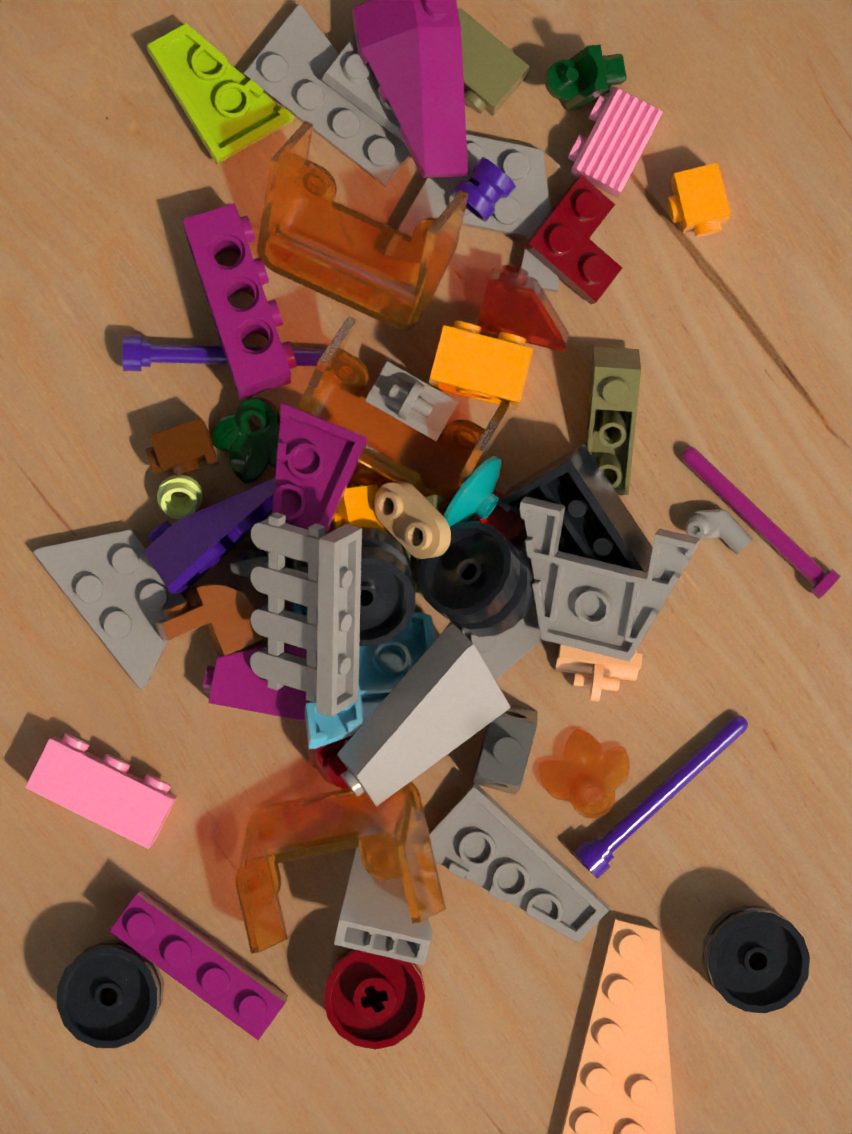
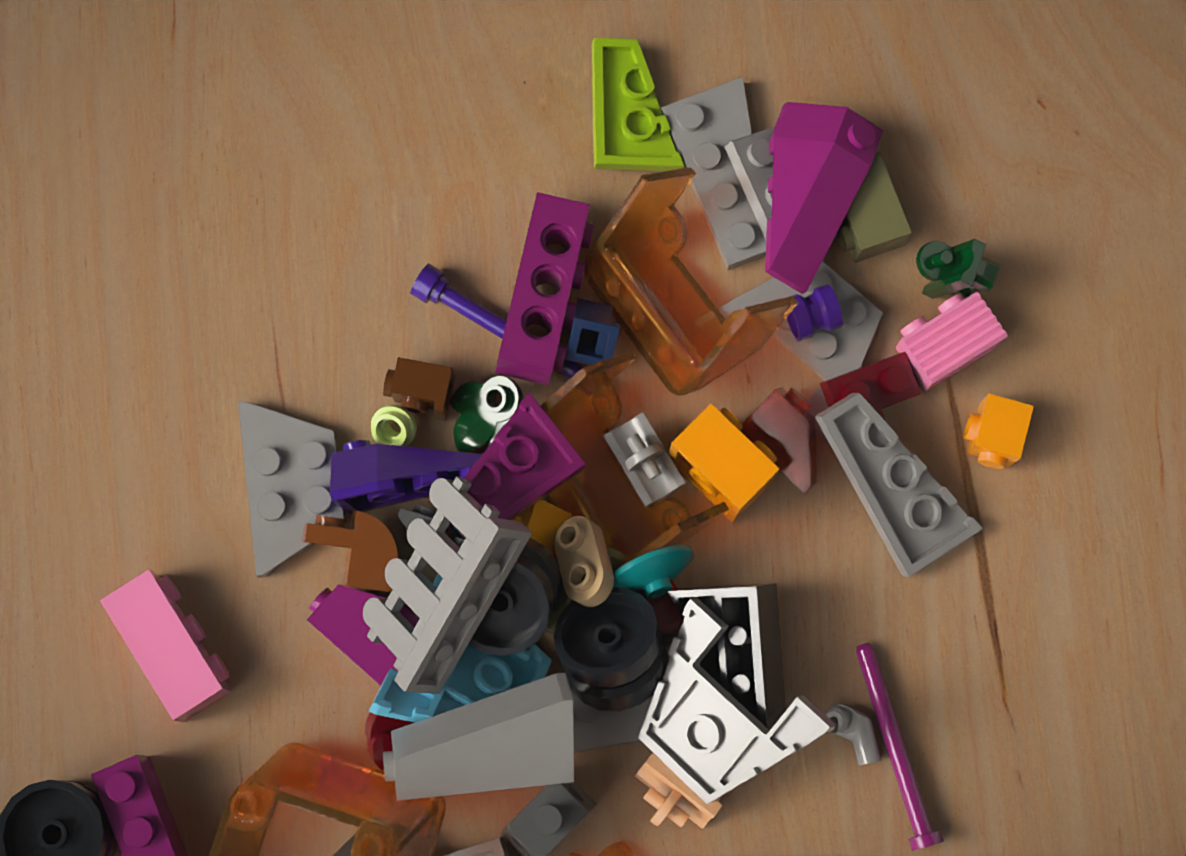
camera: 30 degrees right, 10 degrees down
(304, 317) = (592, 333): none -> dark blue brick
(613, 412) = (818, 574): olive slope -> none
(647, 306) = (901, 497): none -> light grey wing

